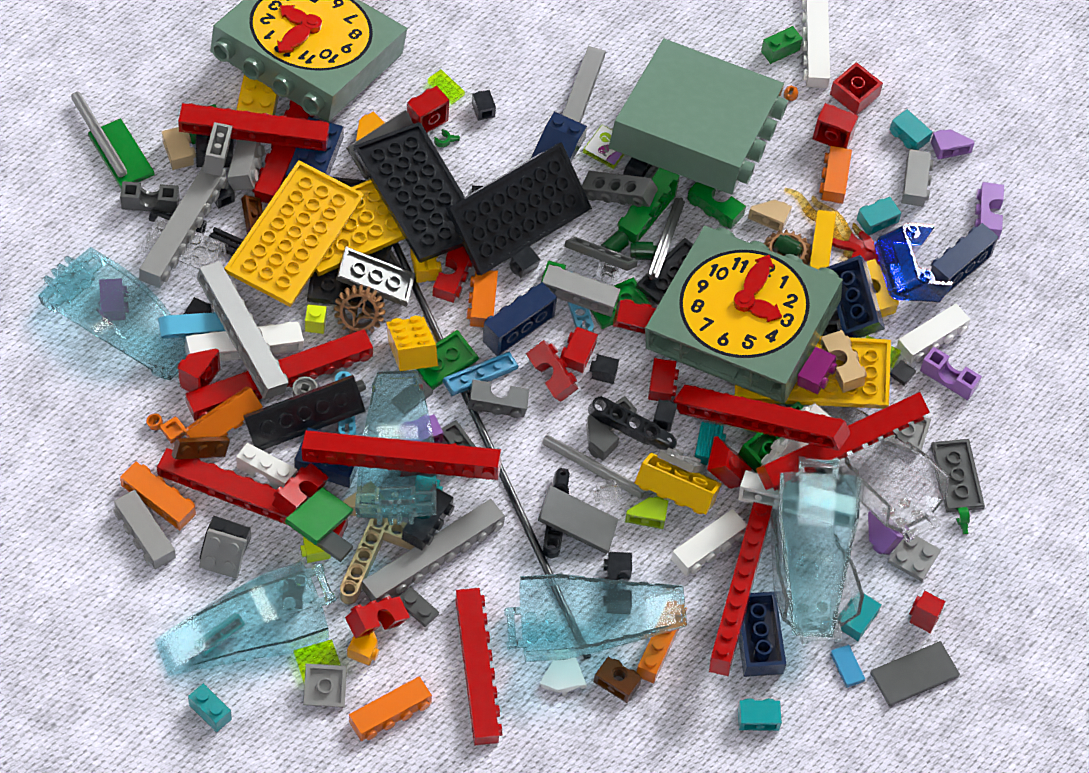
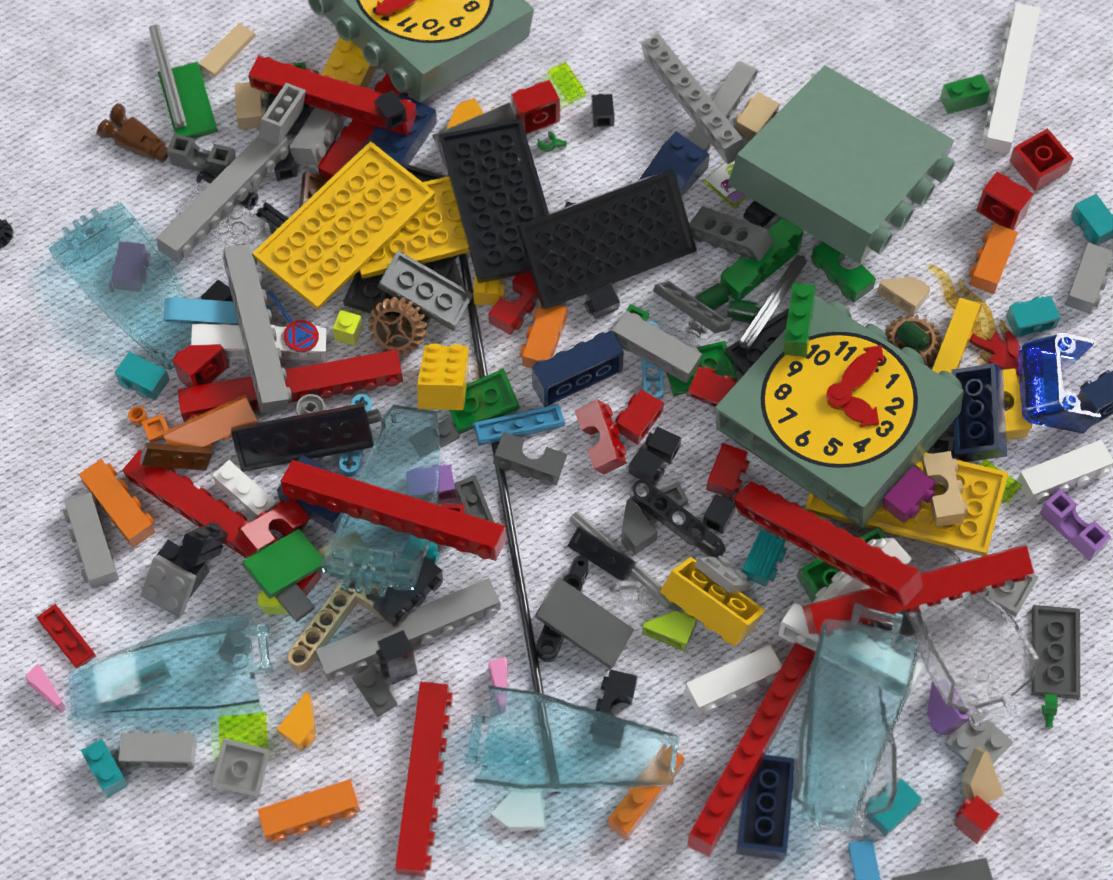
camera: 20 degrees right, 5 degrees up
(82, 190) = (133, 135): none -> reddish brown piece
(137, 653) = (39, 682): none -> bright pink slope
(143, 104) = (226, 50): none -> tan tile
(144, 611) = (66, 636): none -> red tile
(149, 388) = (141, 376): none -> teal brick
(245, 512) = (202, 544): none -> black brick
(250, 685) = (157, 749): none -> light grey brick
(277, 330) = (298, 334): none -> piece
(311, 130) = (390, 110): none -> black brick
(365, 619) = (337, 693): red arch -> none
(433, 573) = (396, 657): none -> black brick
(514, 571) = (498, 672): none -> bright pink slope
(559, 82) = (692, 98): none -> light grey brick
(577, 464) = (601, 554): none -> black tile
(595, 386) = (647, 466): none -> black brick
(614, 90) = (756, 115): none -> tan brick
(621, 689) = (589, 841): reddish brown brick -> none
(698, 245) = (799, 320): none -> green arch
(727, 464) = (777, 587): red slope -> none
(794, 94) = (967, 154): orange hinge -> none
(902, 372) = (1017, 512): black tile -> none
(922, 578) = (981, 777): none -> tan slope

